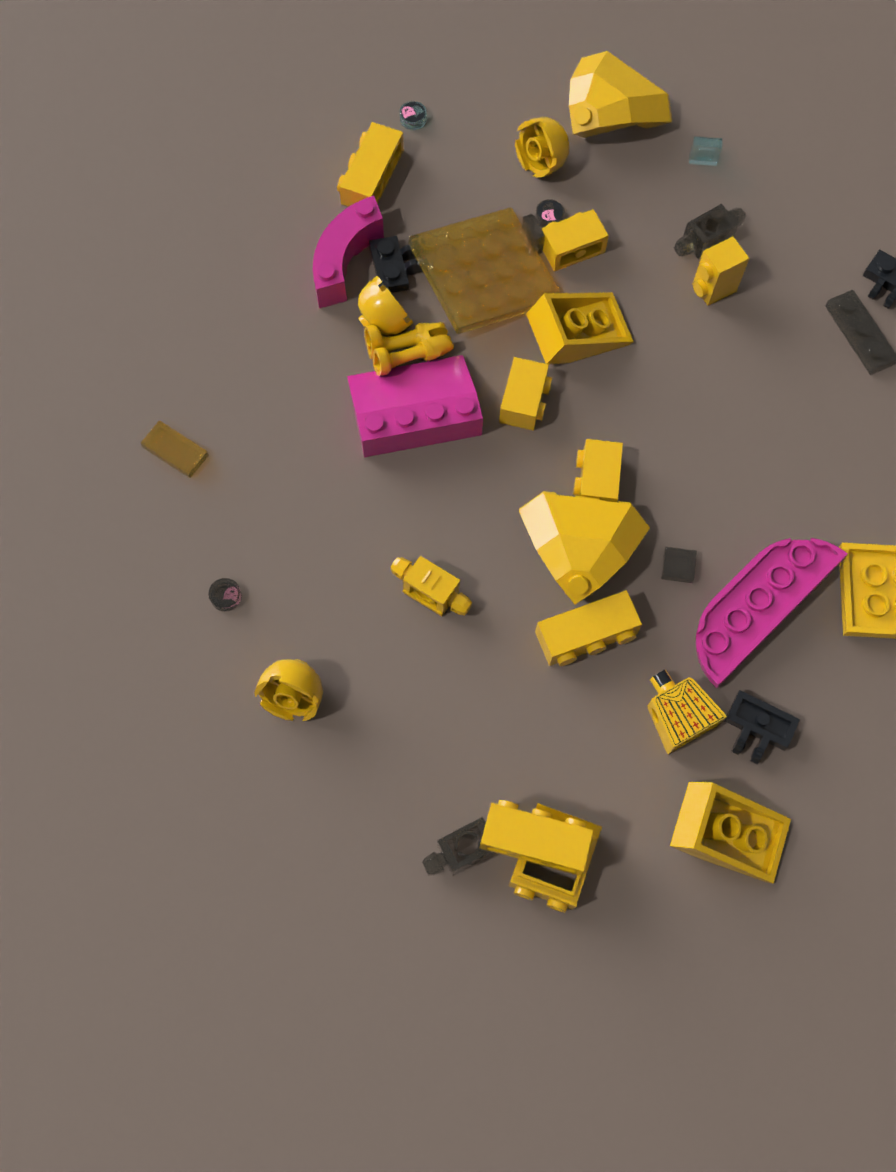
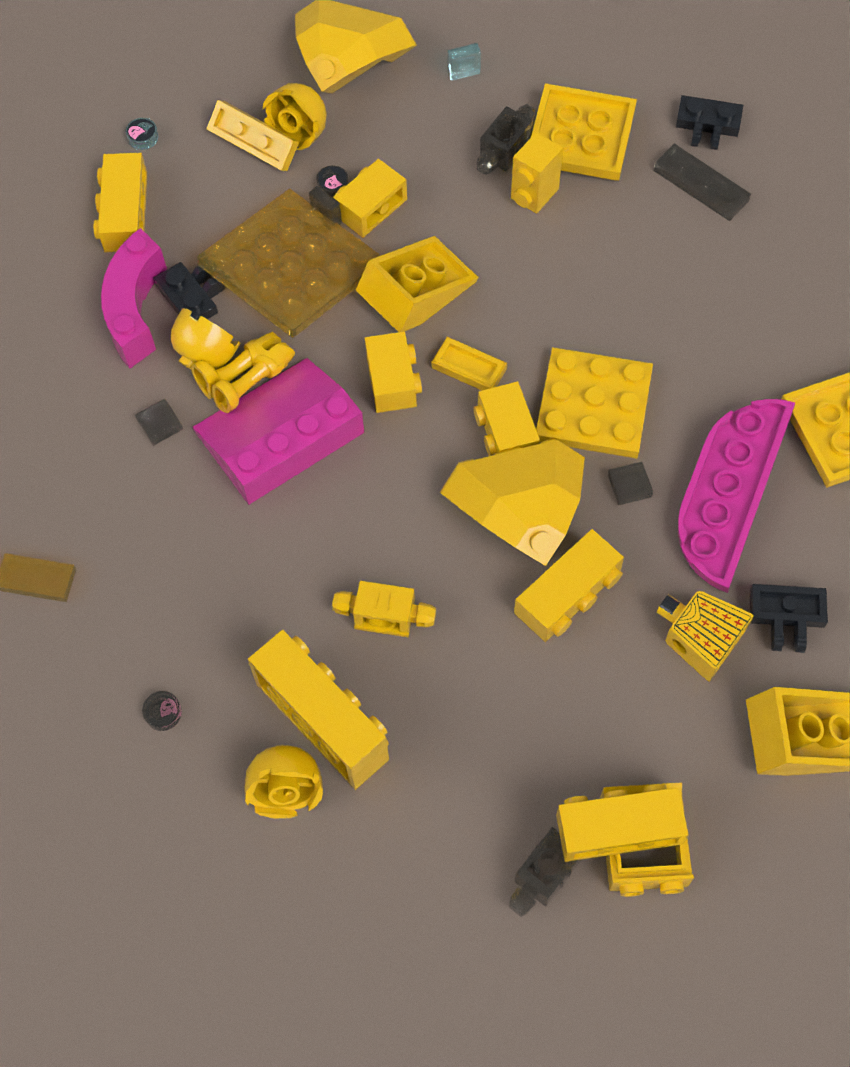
camera: 20 degrees left, 5 degrees down
(322, 361) = (159, 422): none -> clear smoke tile
(341, 640) = (320, 708): none -> yellow brick
(501, 150) = (252, 135): none -> yellow plate
(591, 412) = (468, 365): none -> yellow tile
(681, 485) = (594, 402): none -> yellow plate
(782, 248) = (588, 127): none -> yellow plate

